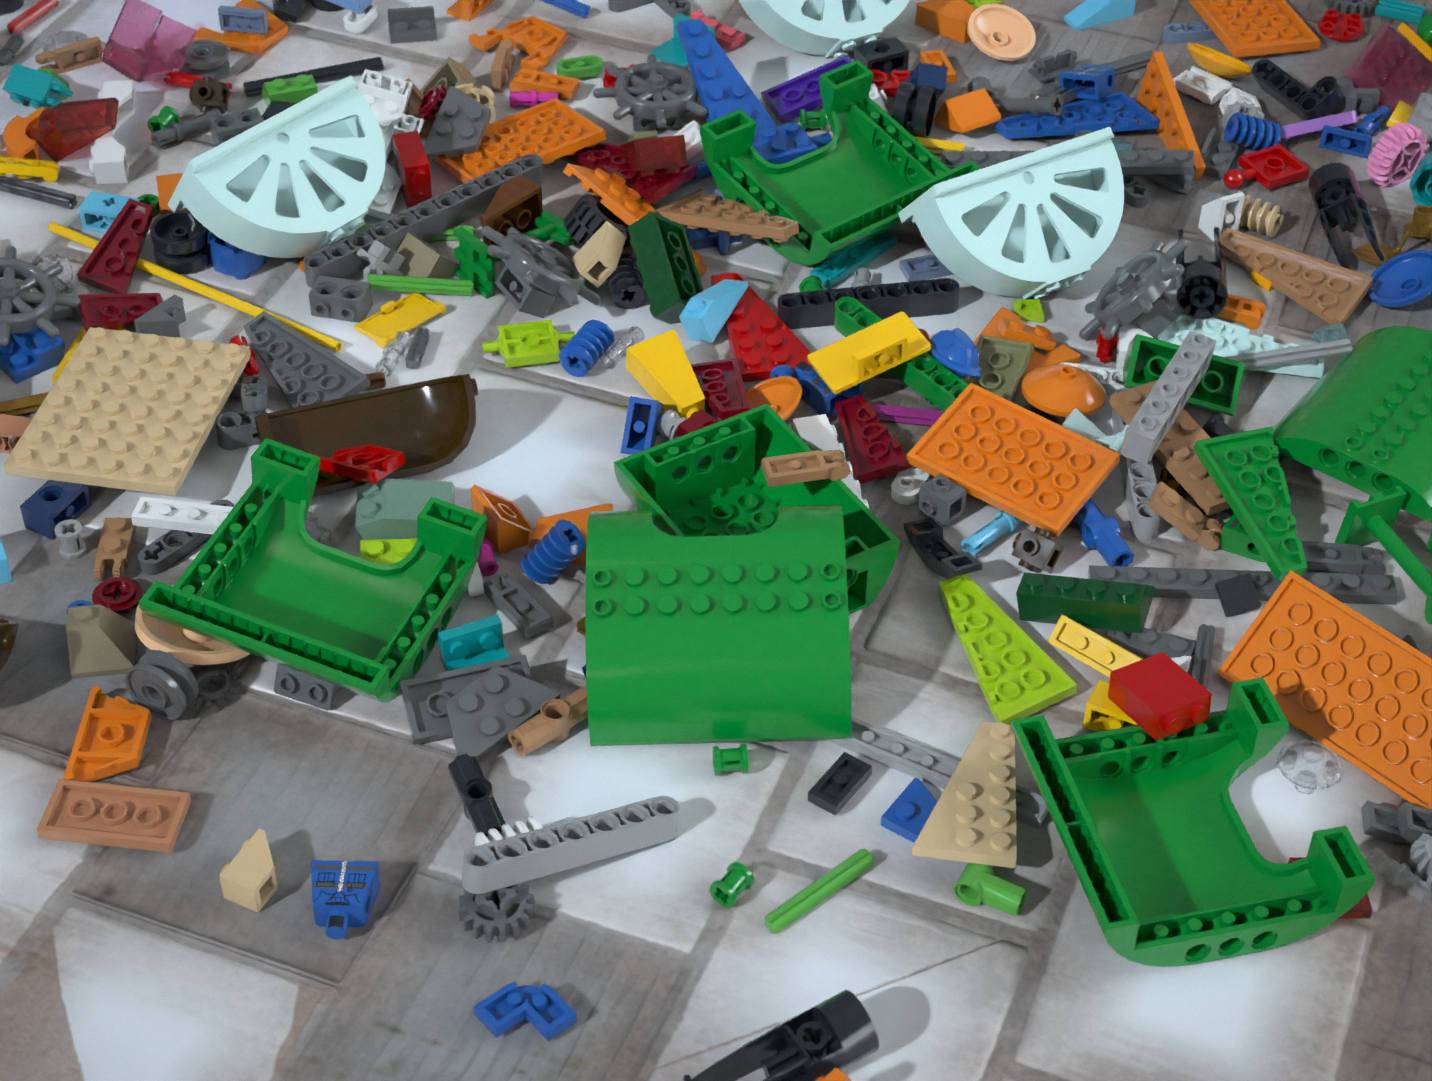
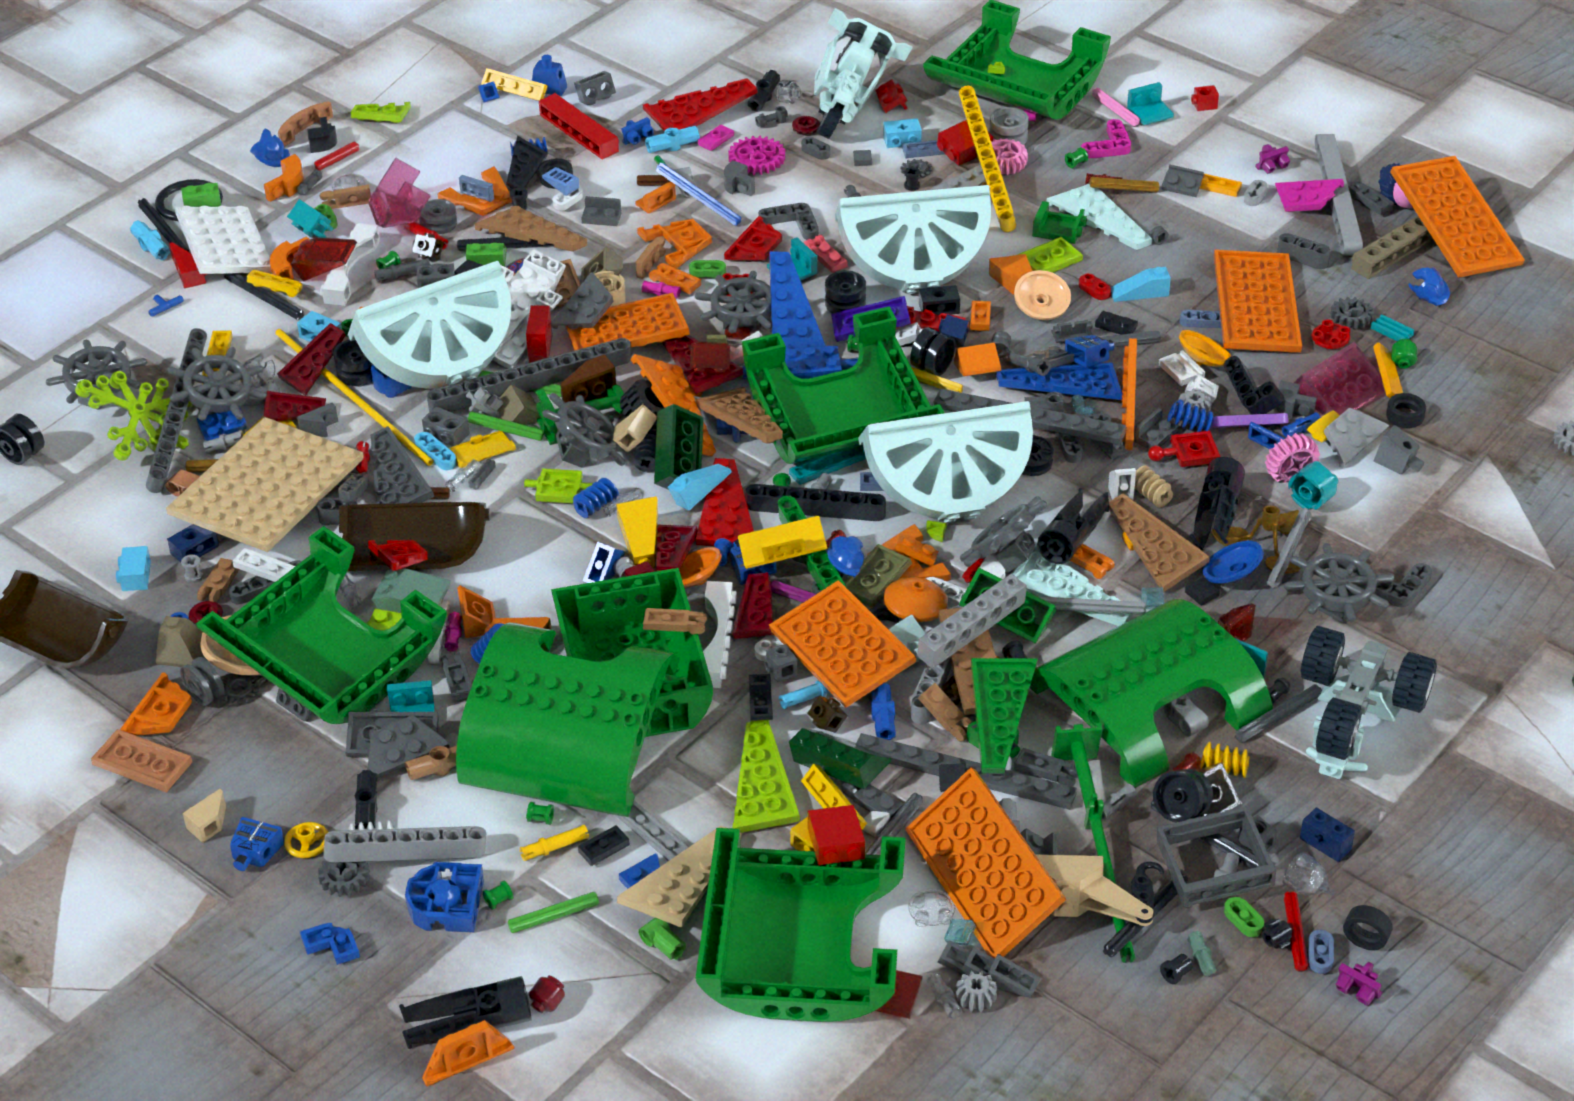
camera: 20 degrees right, 0 degrees up
(41, 369) = (223, 441): none -> light grey pin
(300, 26) = (519, 197): none -> black bush
(330, 55) = (525, 225): none -> medium nougat wing
(355, 338) = (434, 444): none -> medium azure beam
(413, 864) = (306, 835): none -> yellow piece
(432, 102) = (576, 281): dark red gear -> none
(622, 31) = (754, 242): none -> red wing
(661, 132) = (741, 333): none -> clear red pin
(675, 874) = (448, 894): none -> blue connector
(760, 802) = (552, 843): none -> yellow pin
(767, 63) = (844, 291): none -> black wheel
(882, 1004) = (546, 994): none -> dark red head
(1047, 18) = (1094, 286): none -> red plate
(1096, 51) = (1115, 323): none -> black plate
(1369, 786) = (960, 931): none -> clear light blue plate
(1382, 317) = (1202, 591): none -> black piece

